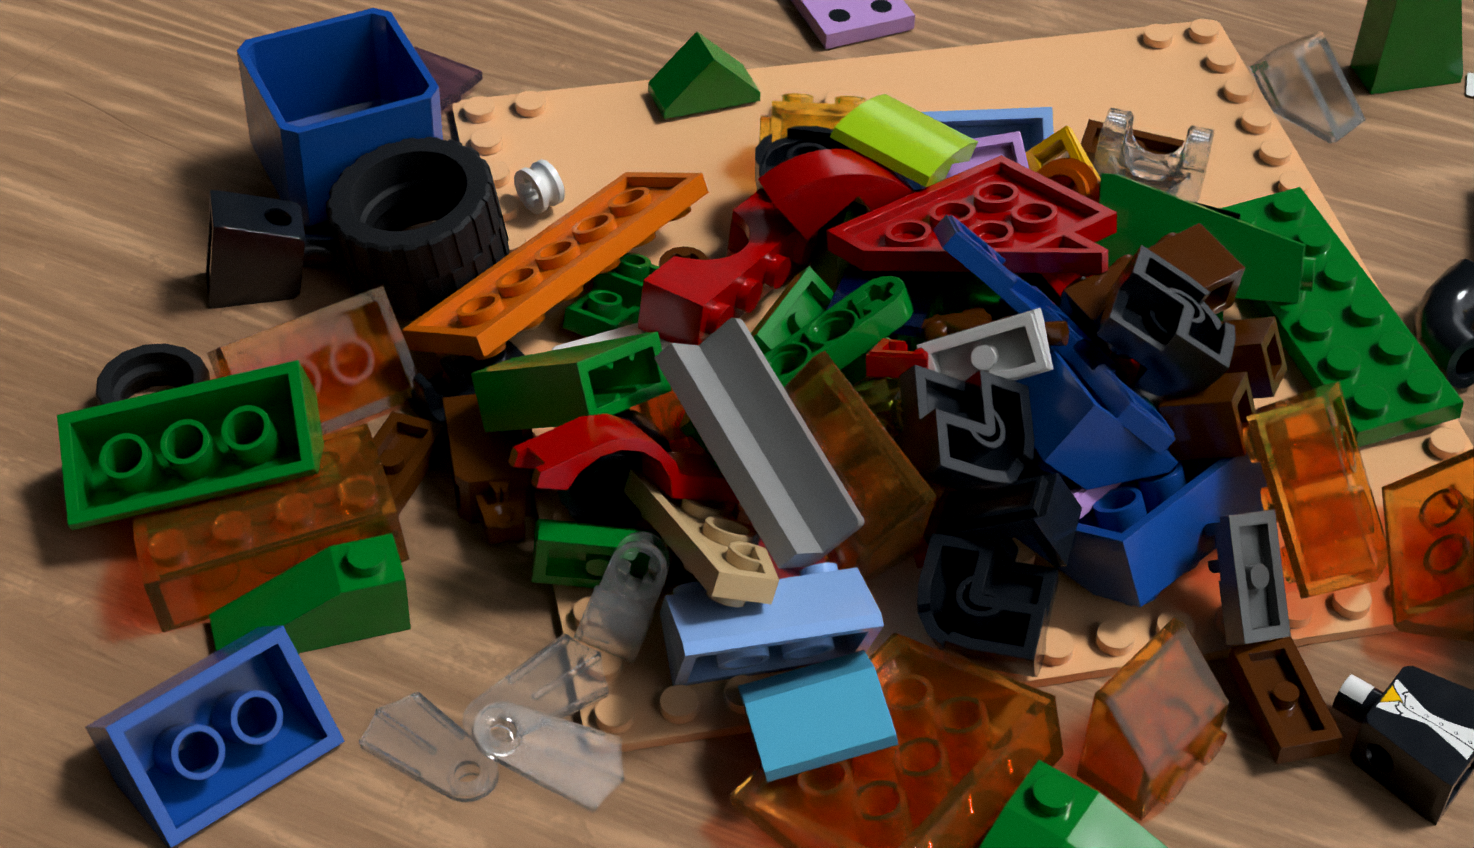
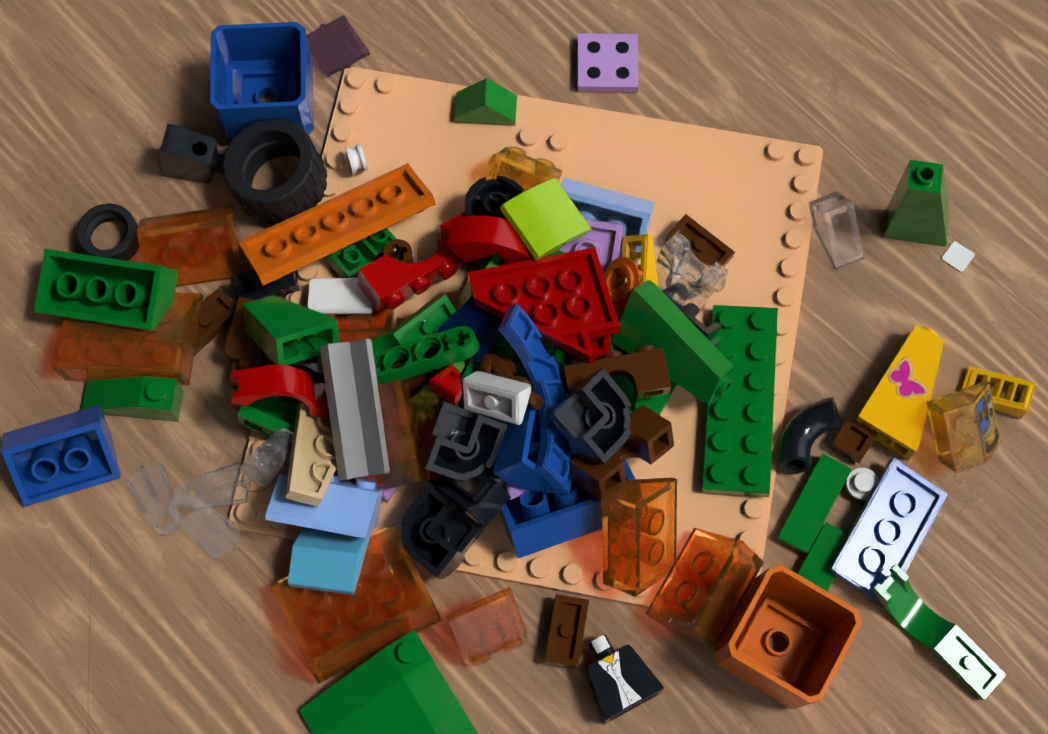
camera: 25 degrees right, 25 degrees up
(1250, 577) = (578, 565): dark grey plate -> none

